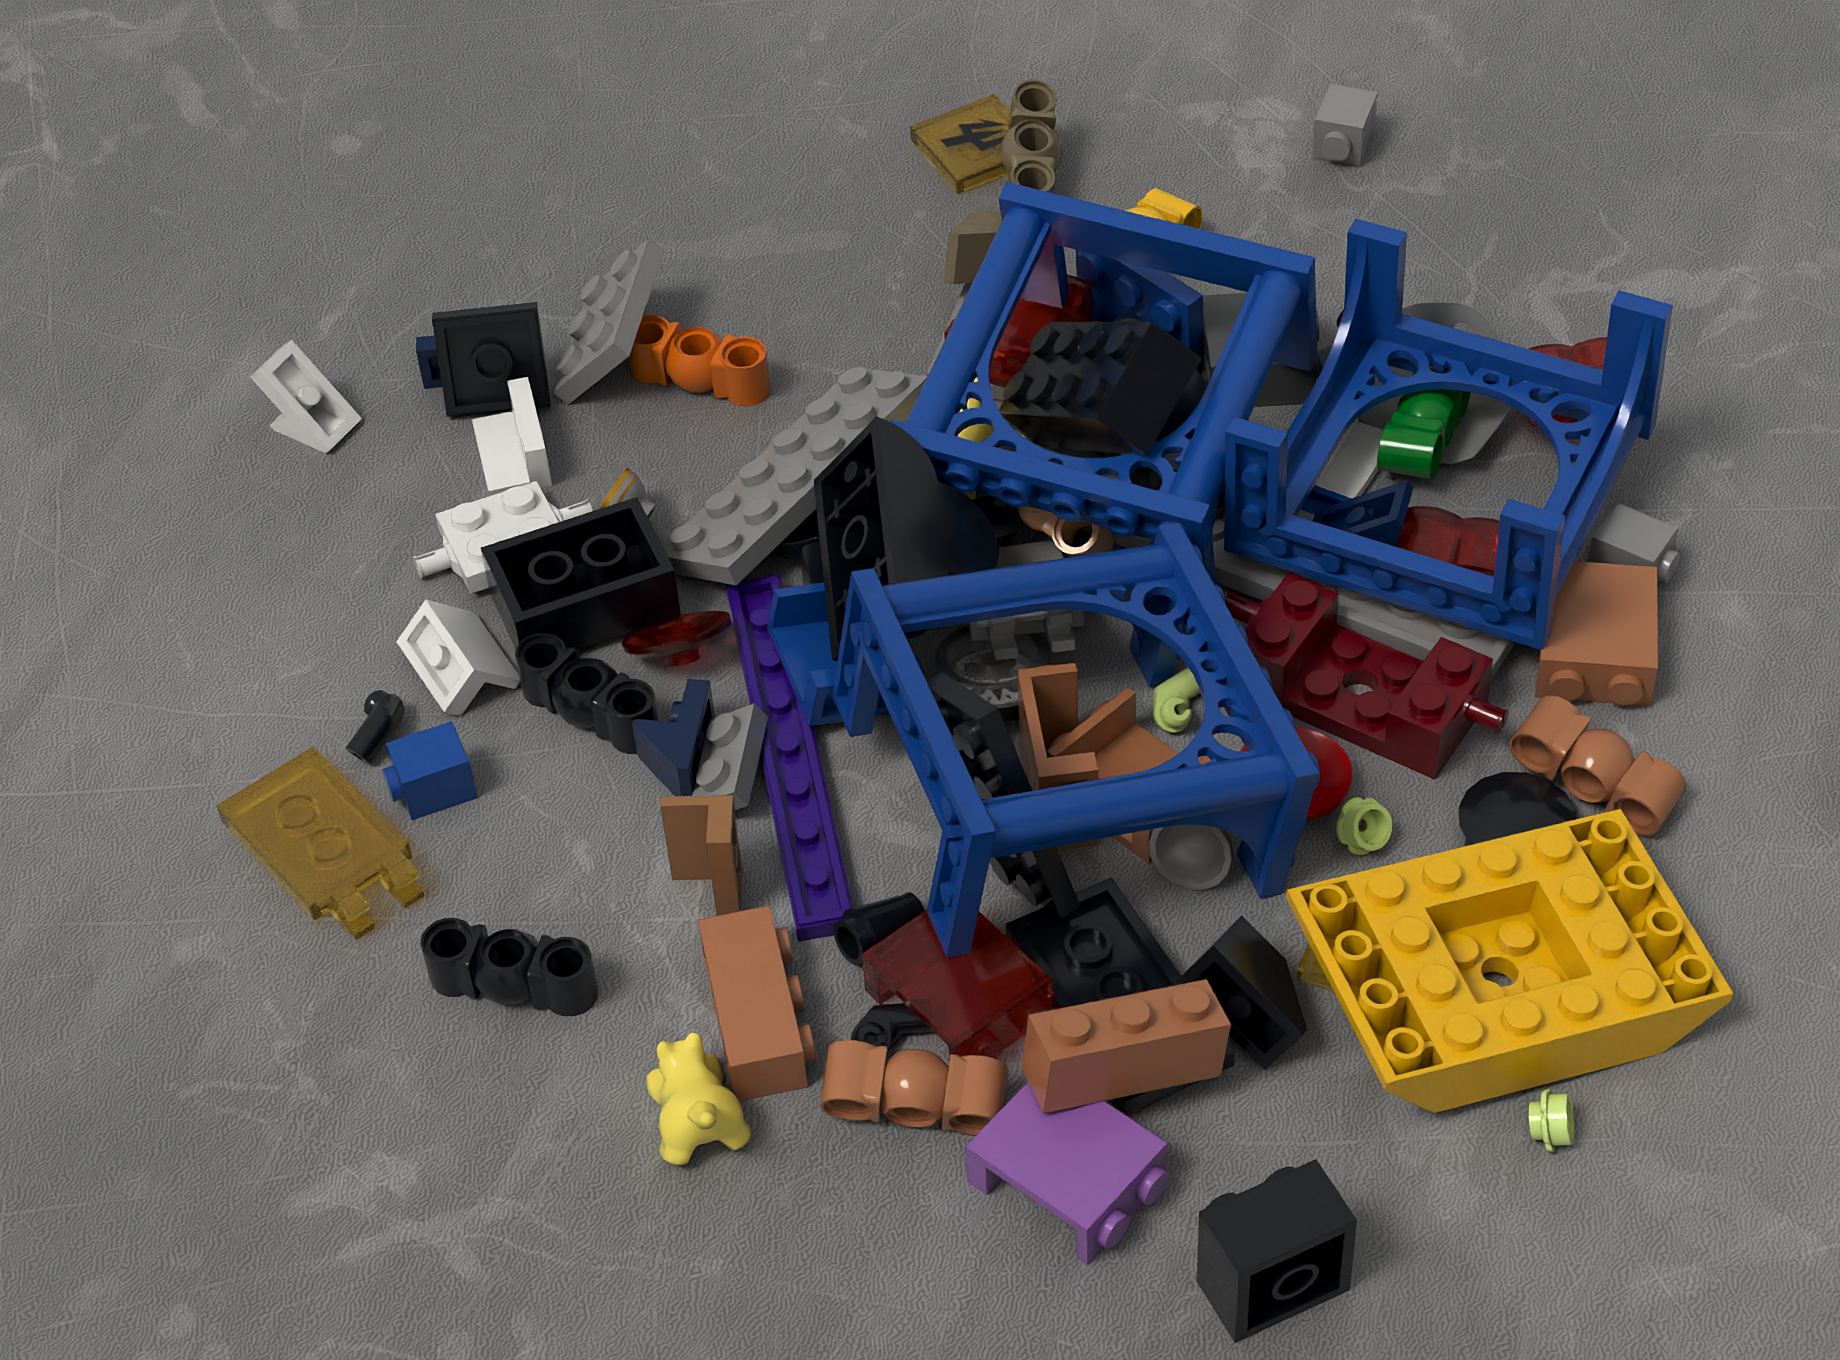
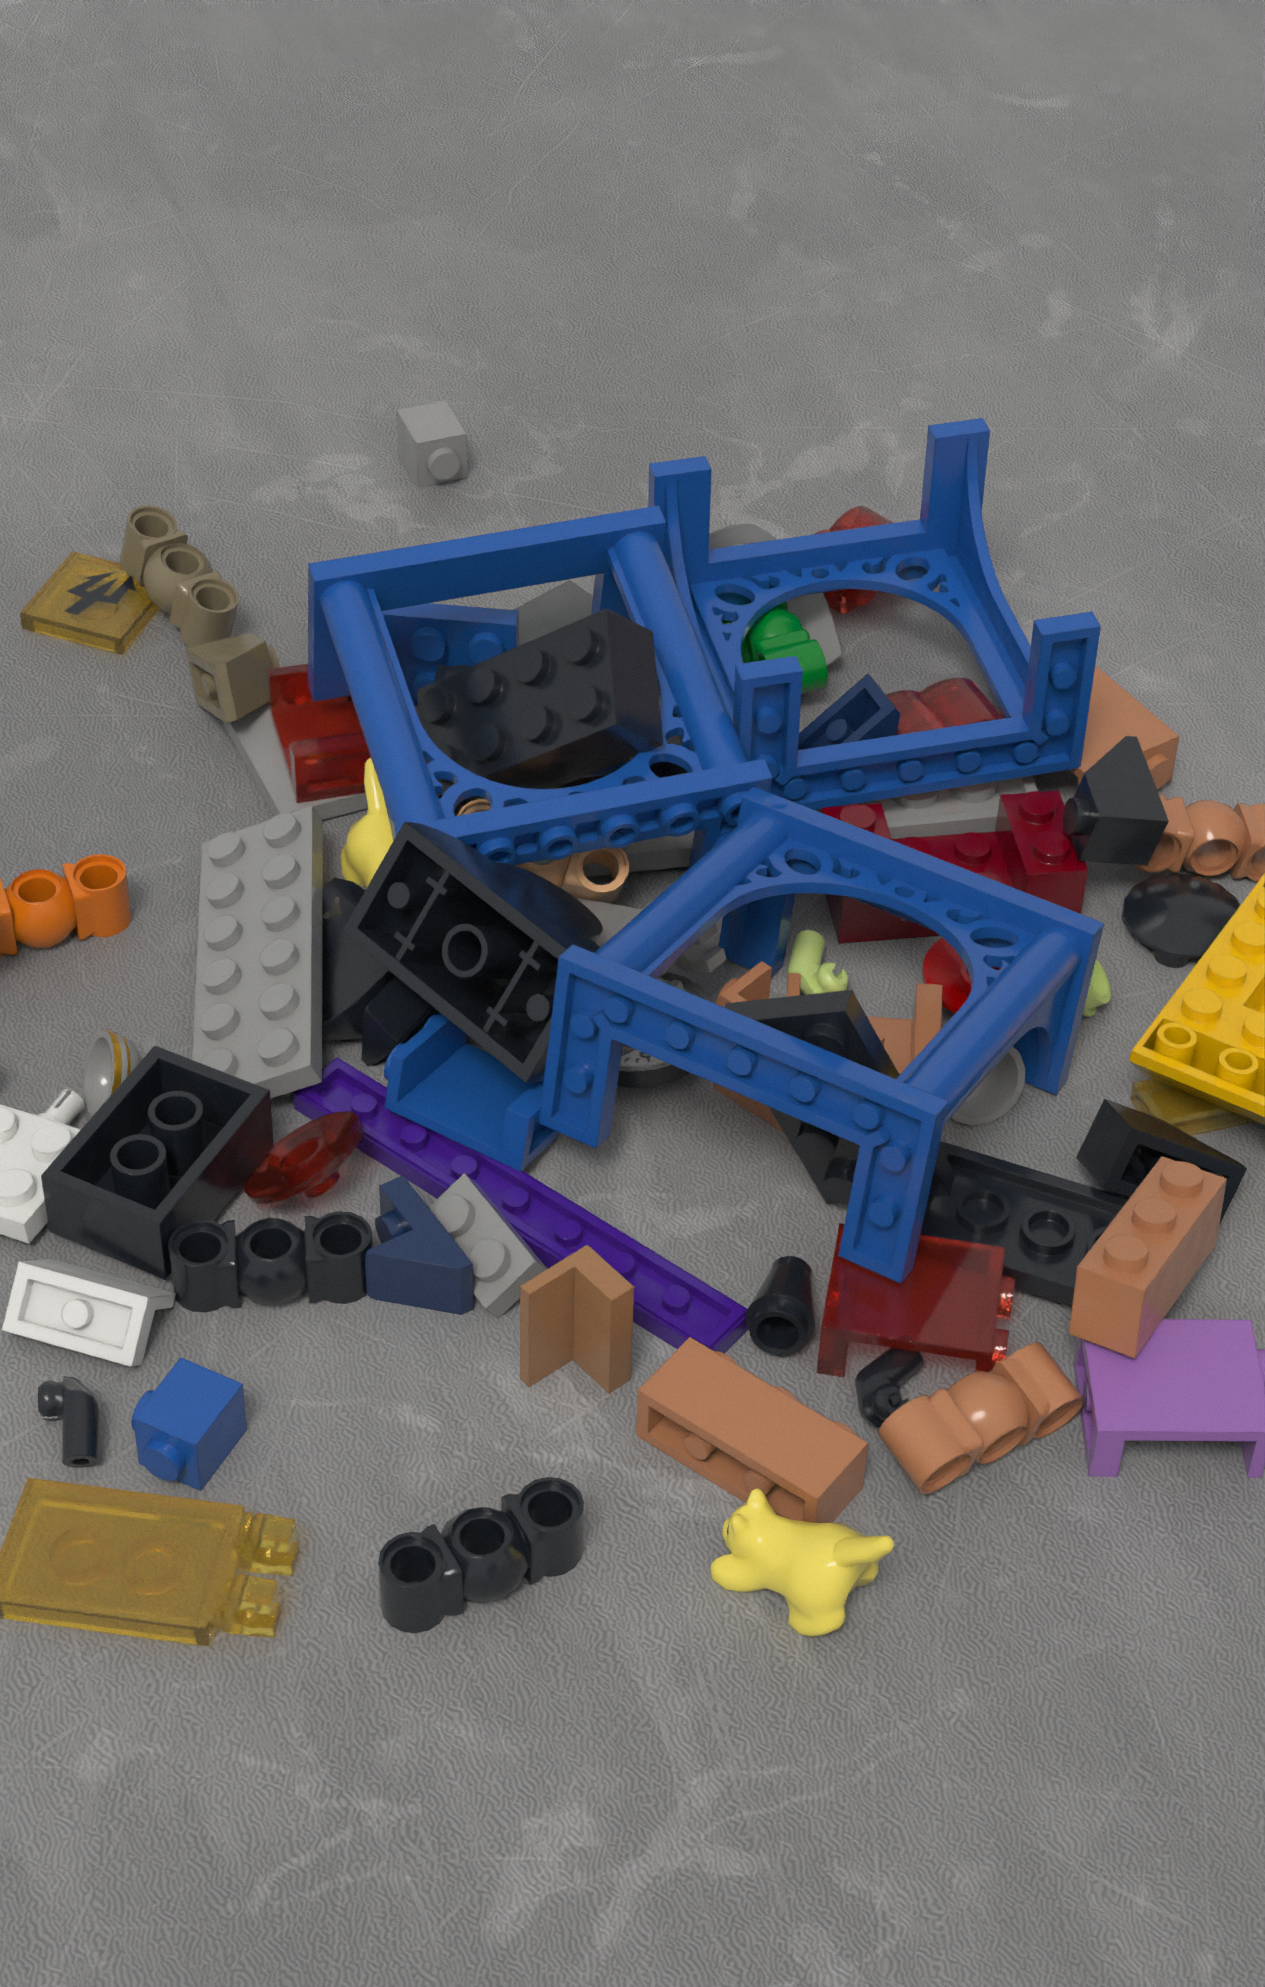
camera: 45 degrees left, 5 degrees down
(1497, 692) = (1116, 809): none -> black slope

